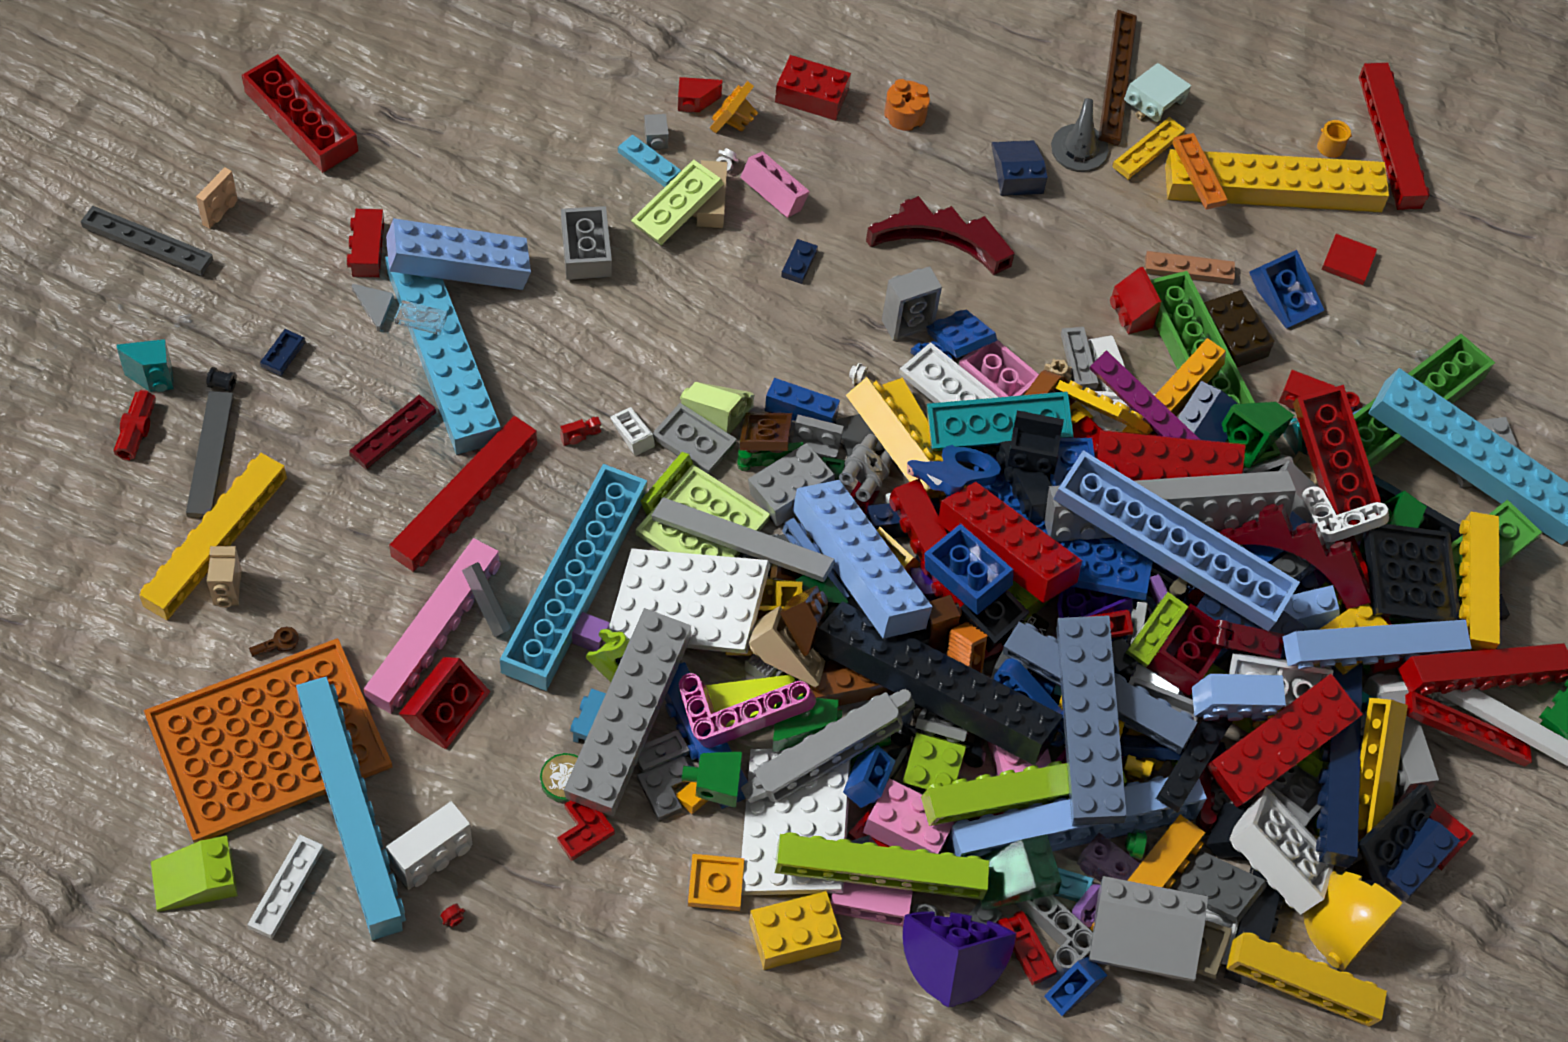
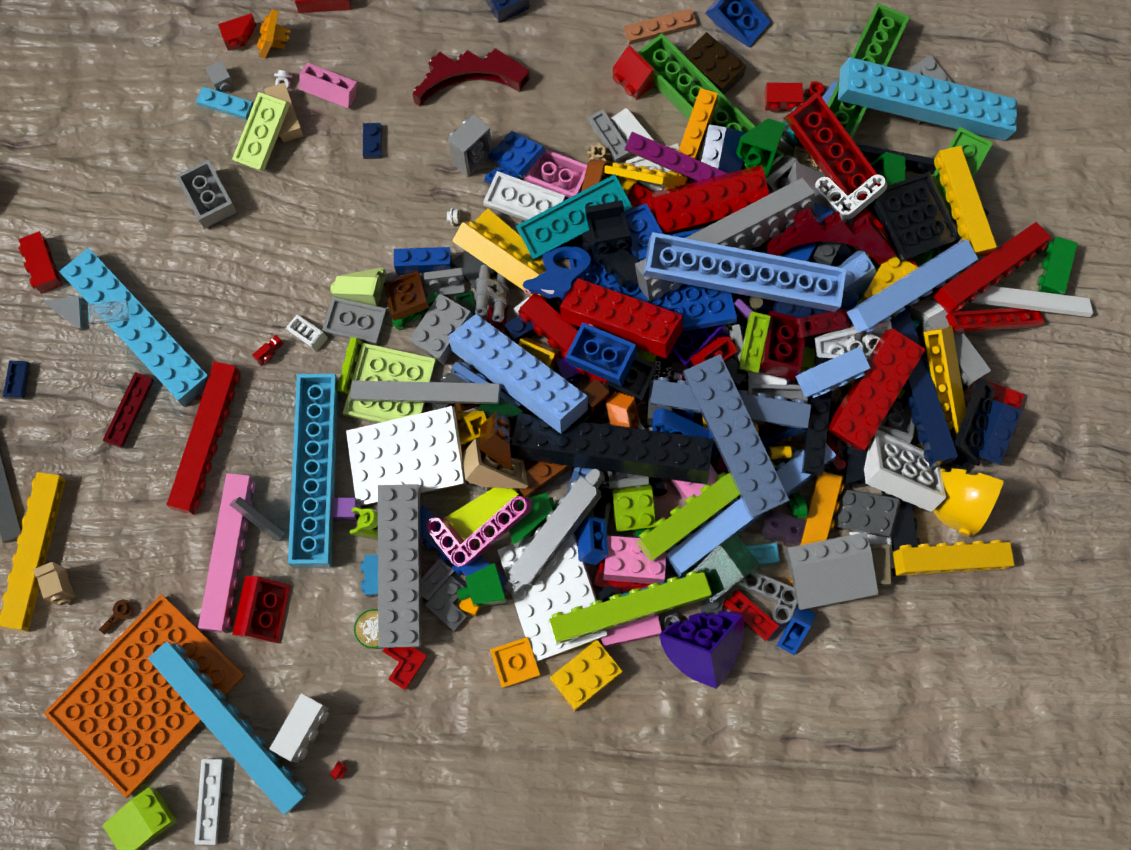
camera: 15 degrees left, 15 degrees up
(458, 254) = (113, 247): light blue brick -> none
(1087, 902) = (781, 570): medium lavender beam -> none

